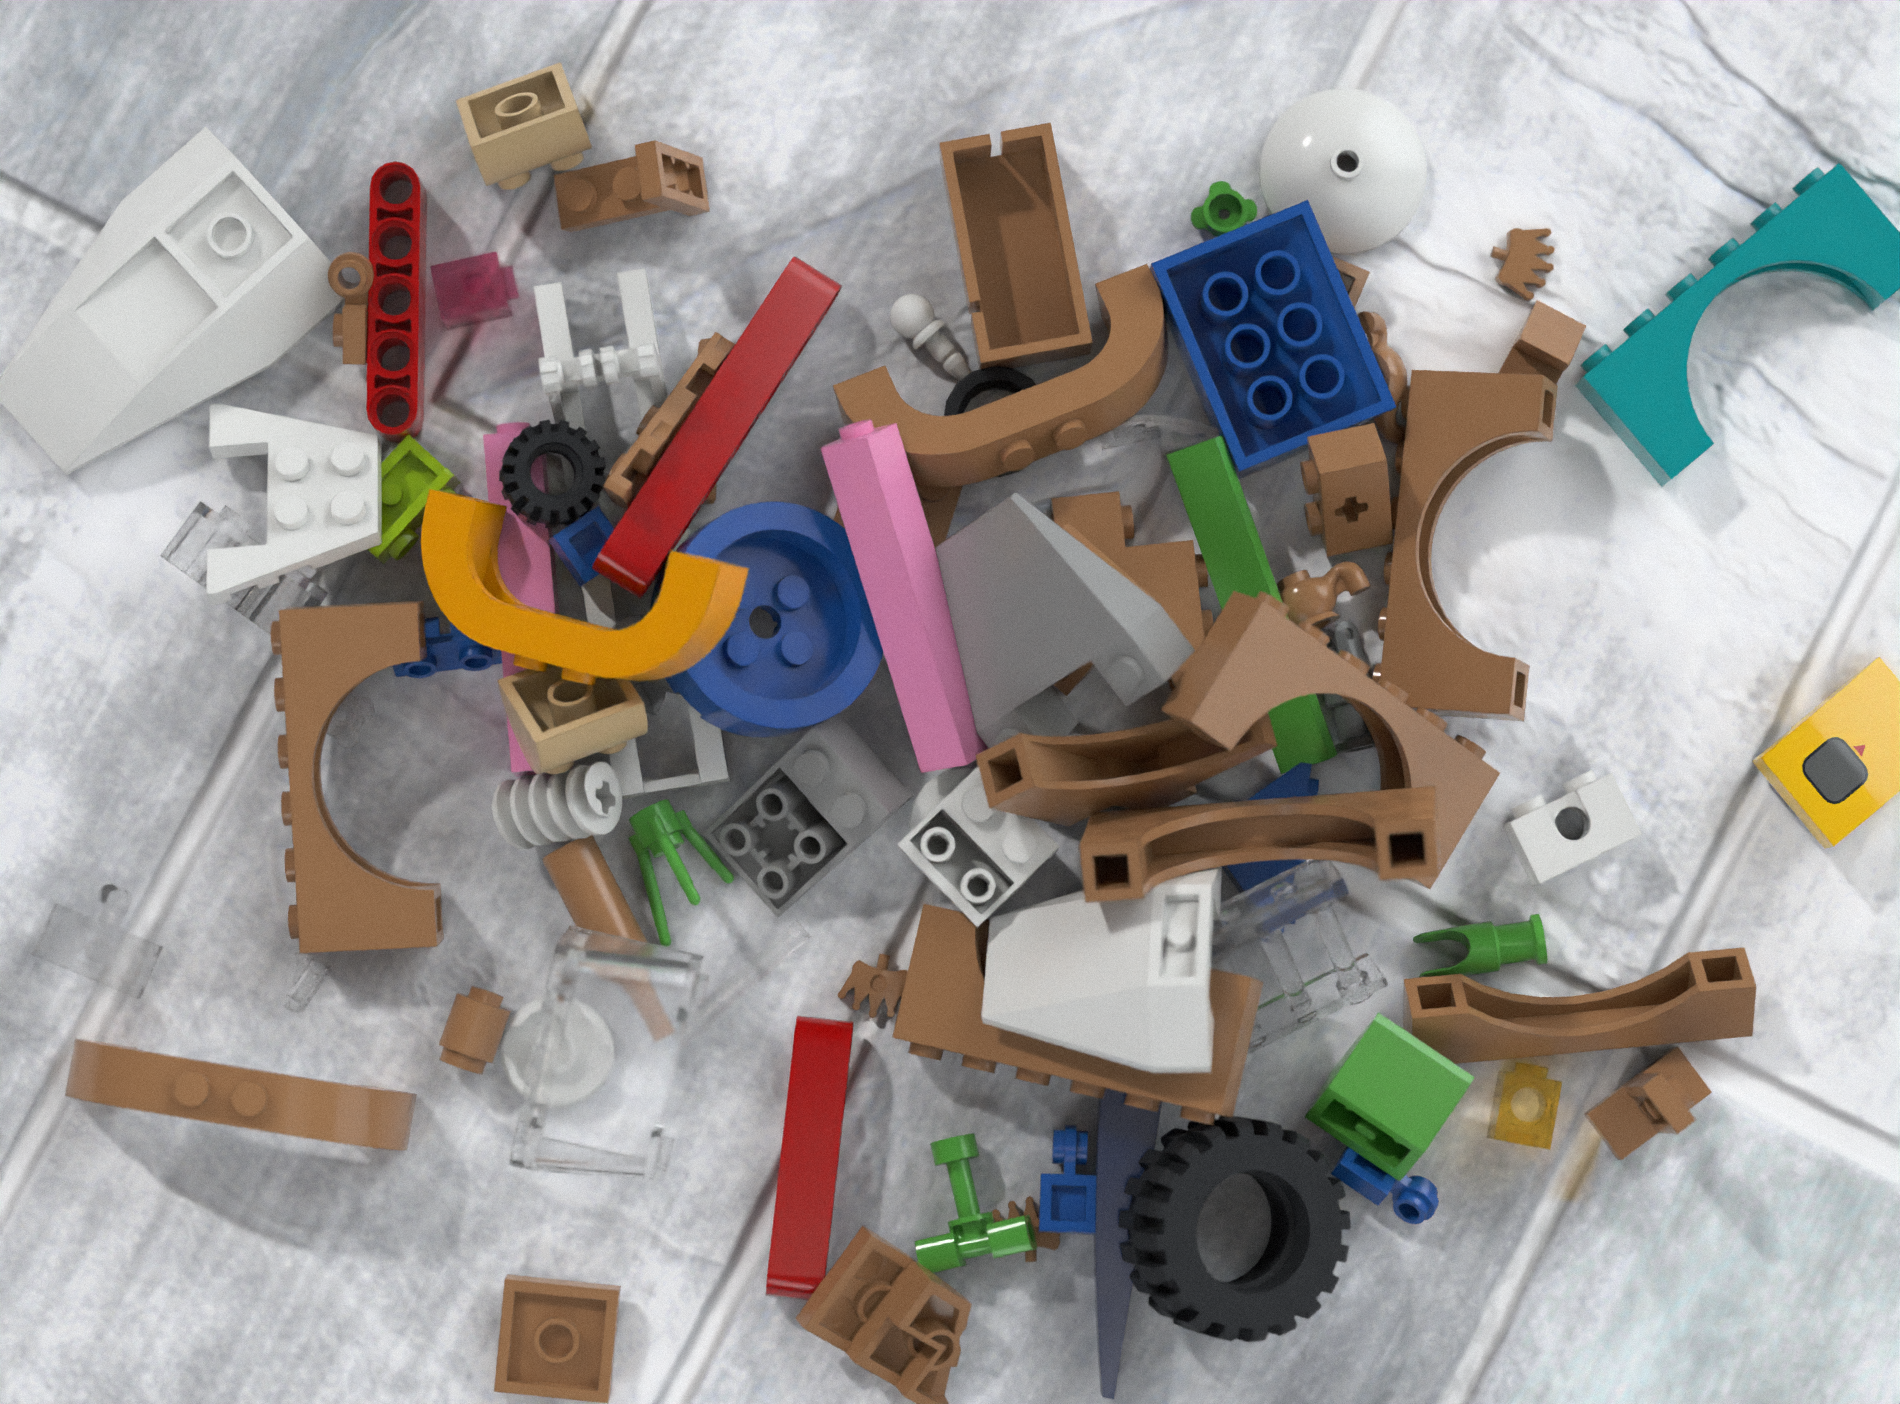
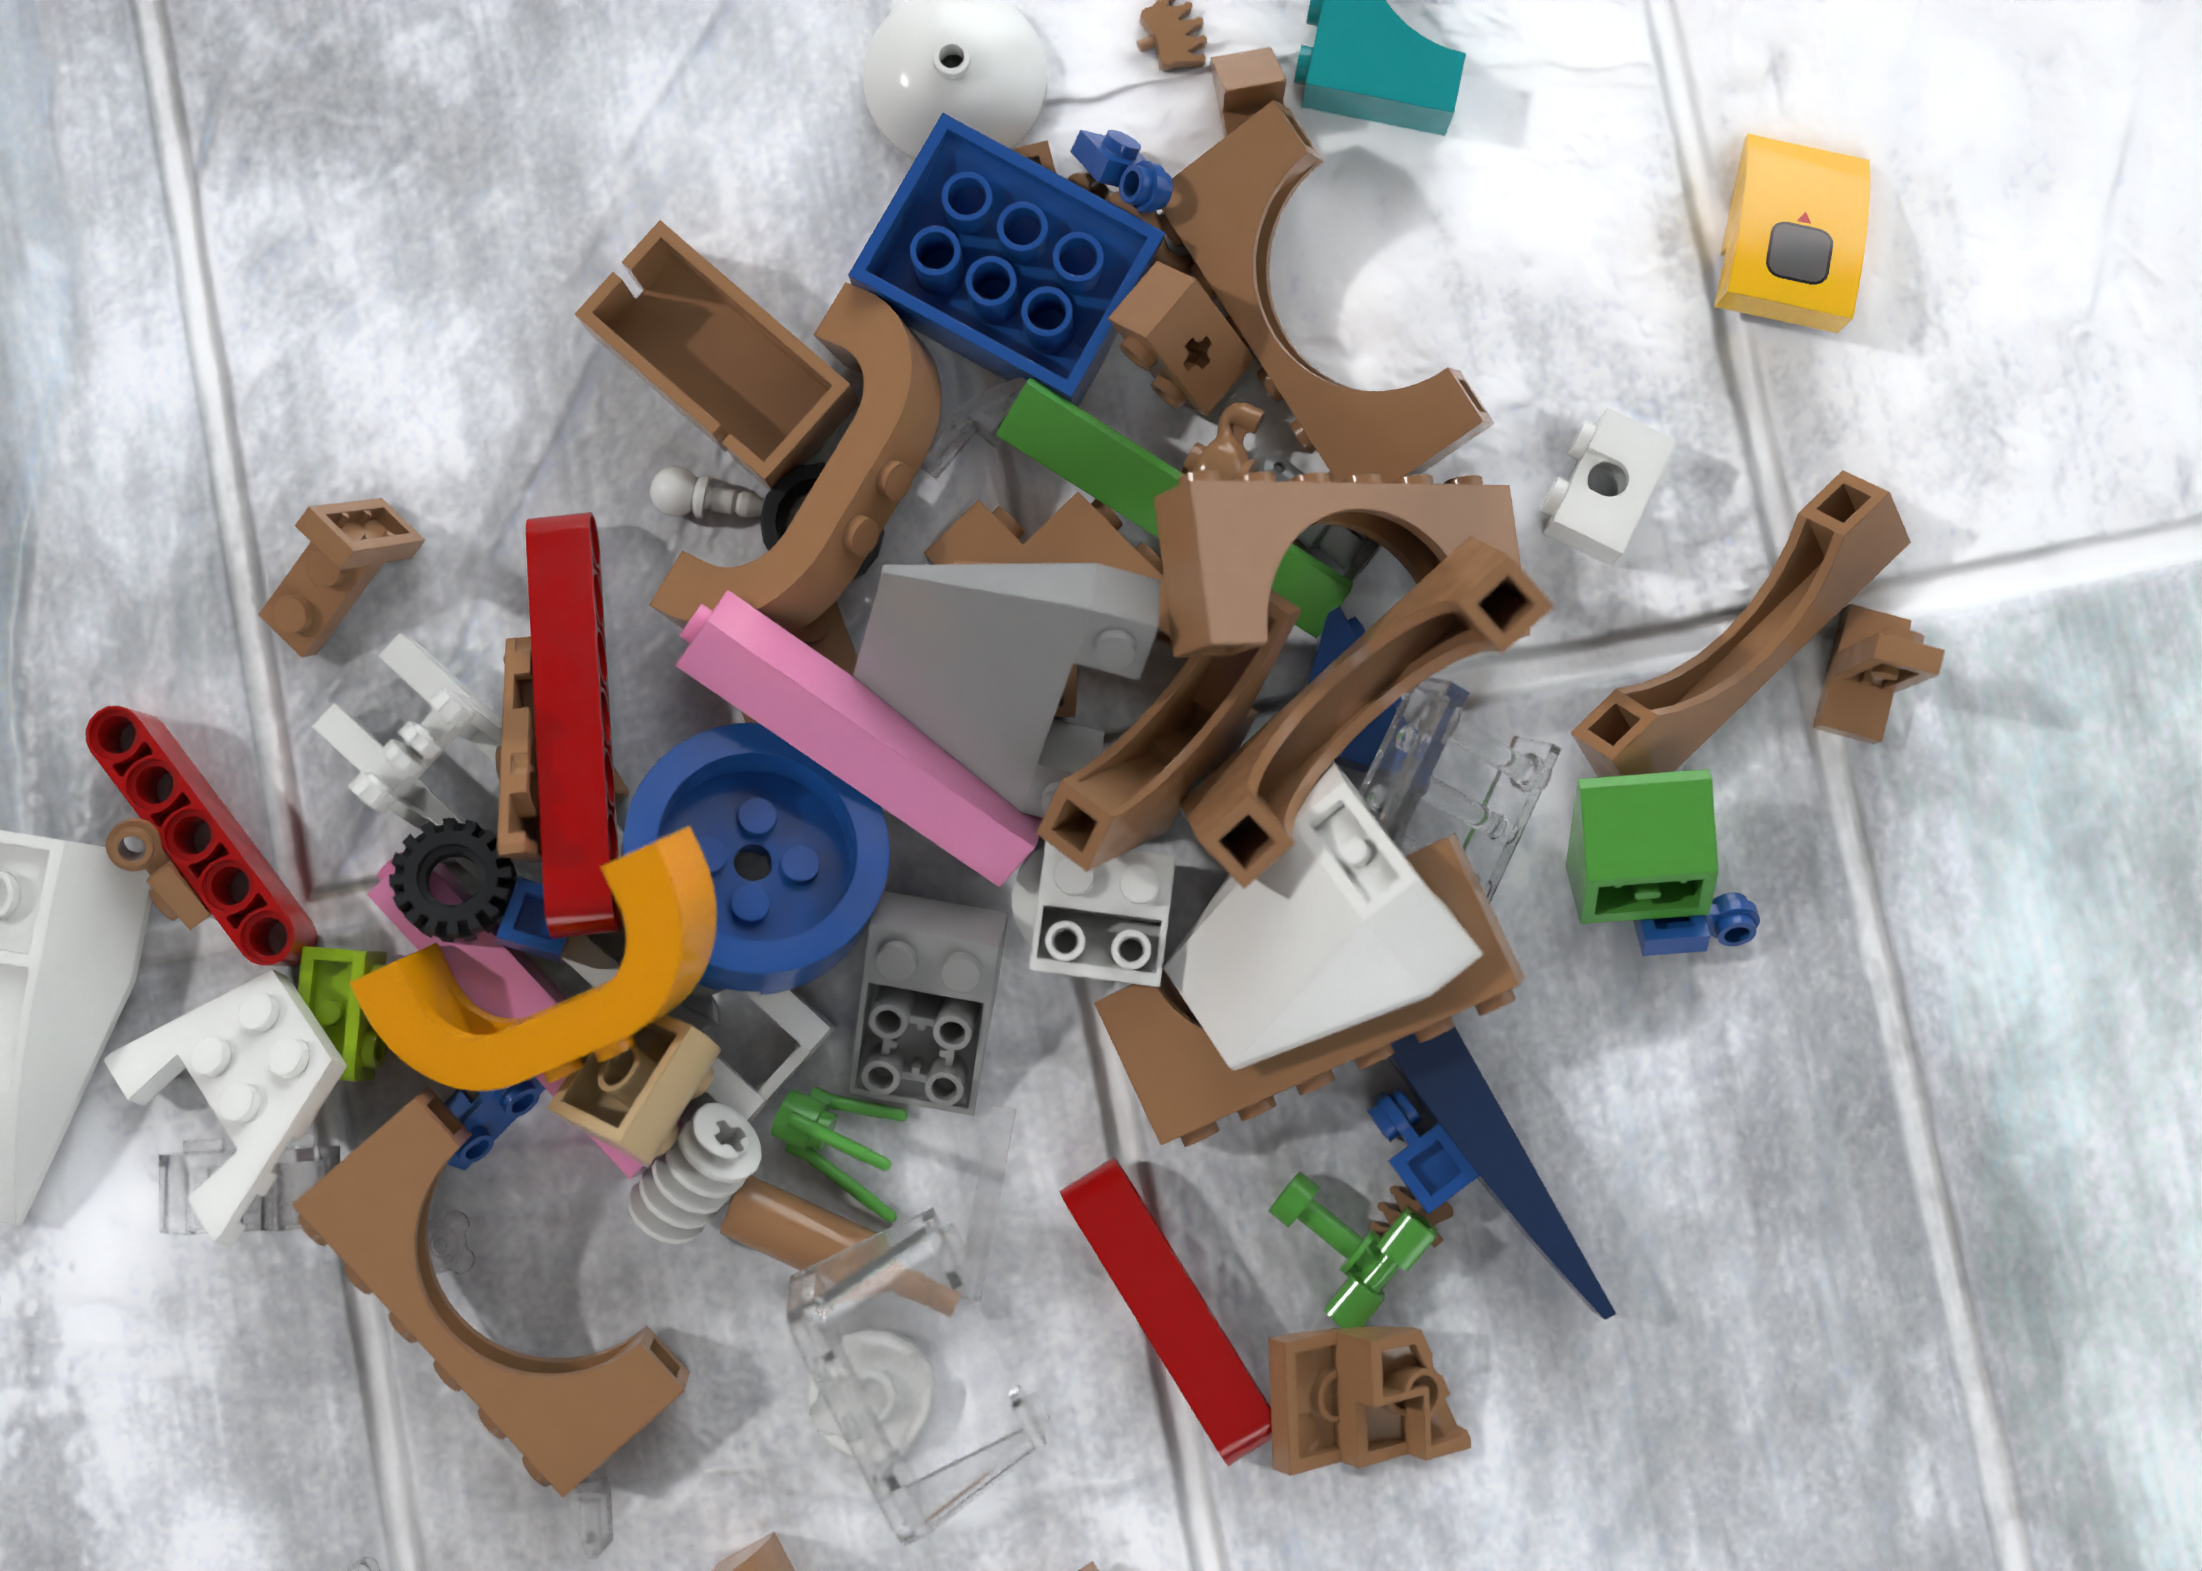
camera: 30 degrees left, 0 degrees up
(473, 1030) = (779, 1436): medium nougat brick -> none
(474, 290) = (263, 772): clear pink brick -> none
(524, 127) = (197, 593): tan brick -> none
(876, 982) = (1108, 1104): medium nougat piece -> none
(1220, 198) = (867, 180): bright green plate -> none
(1301, 1241) = (1677, 1063): black tyre -> none
(1407, 328) = (1117, 162): none -> blue plate
(1491, 945) = (1620, 644): bright green piece -> none
(1506, 1126) = (1790, 768): clear yellow brick -> none

